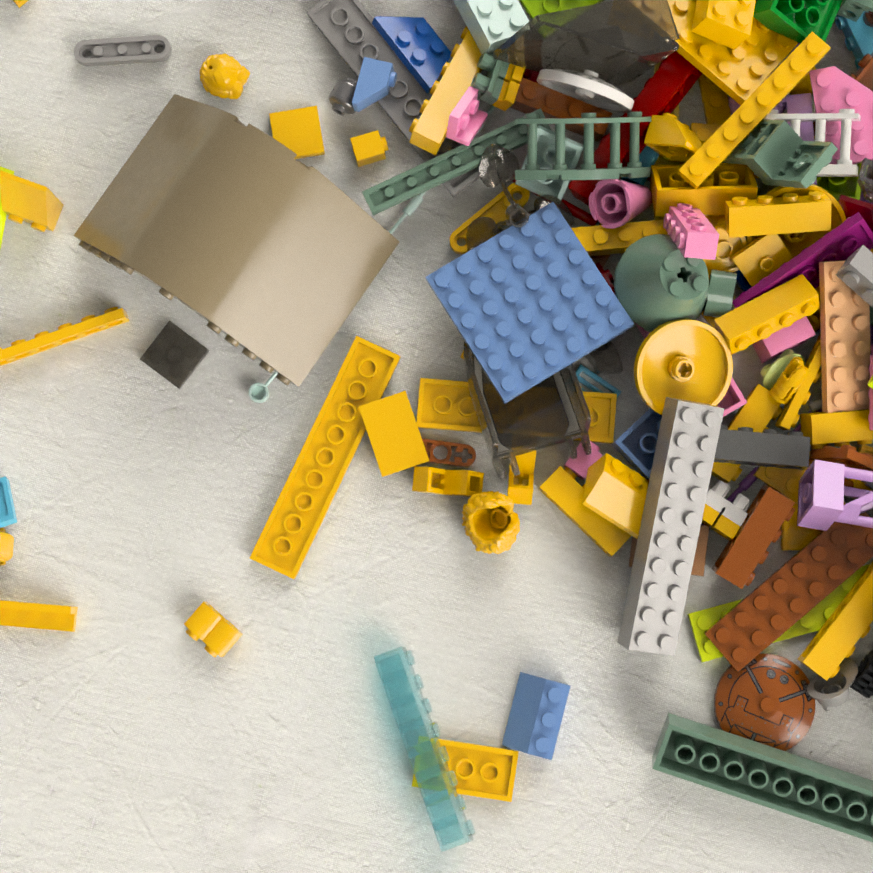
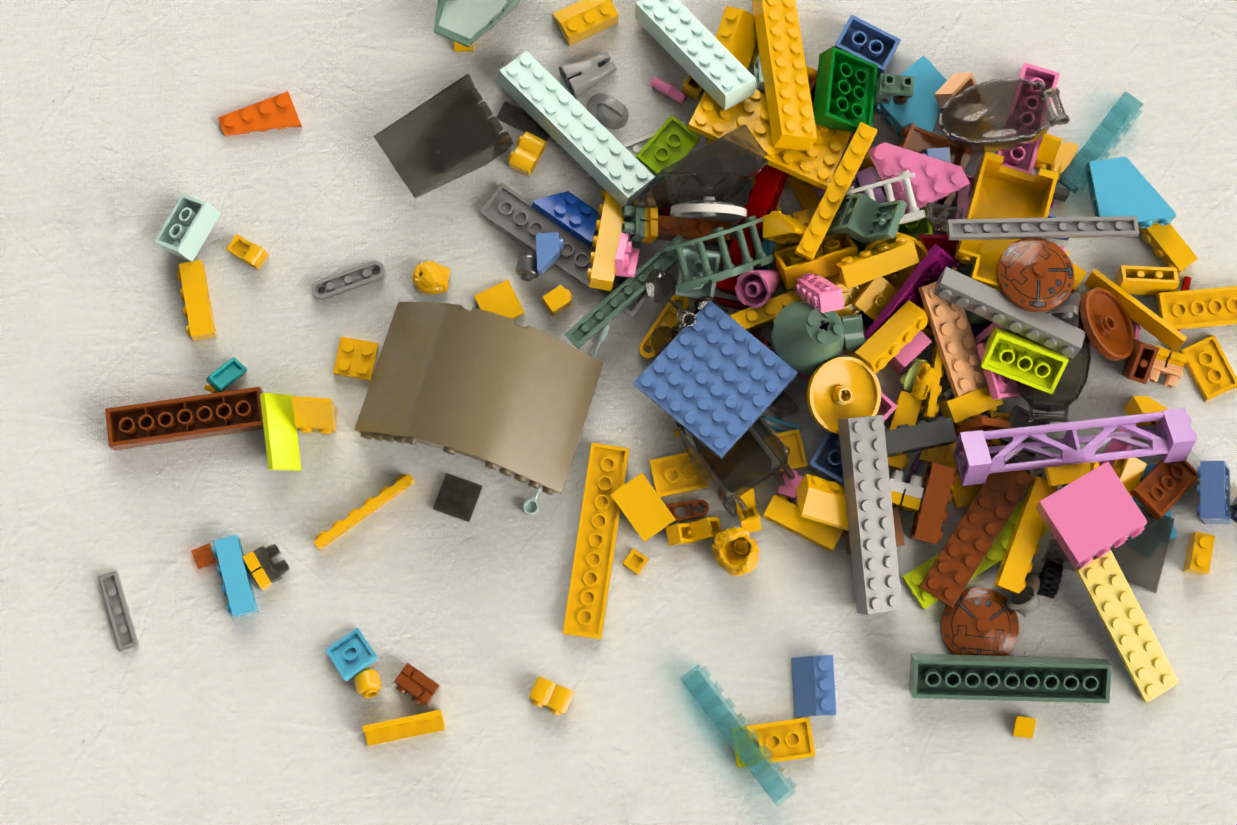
camera: 25 degrees left, 5 degrees down
(55, 567) = (416, 684): none -> dark orange brick
(103, 149) = (356, 358): none -> yellow plate
(366, 496) = (635, 561): none -> yellow tile
(780, 844) = (1023, 727): none -> yellow slope

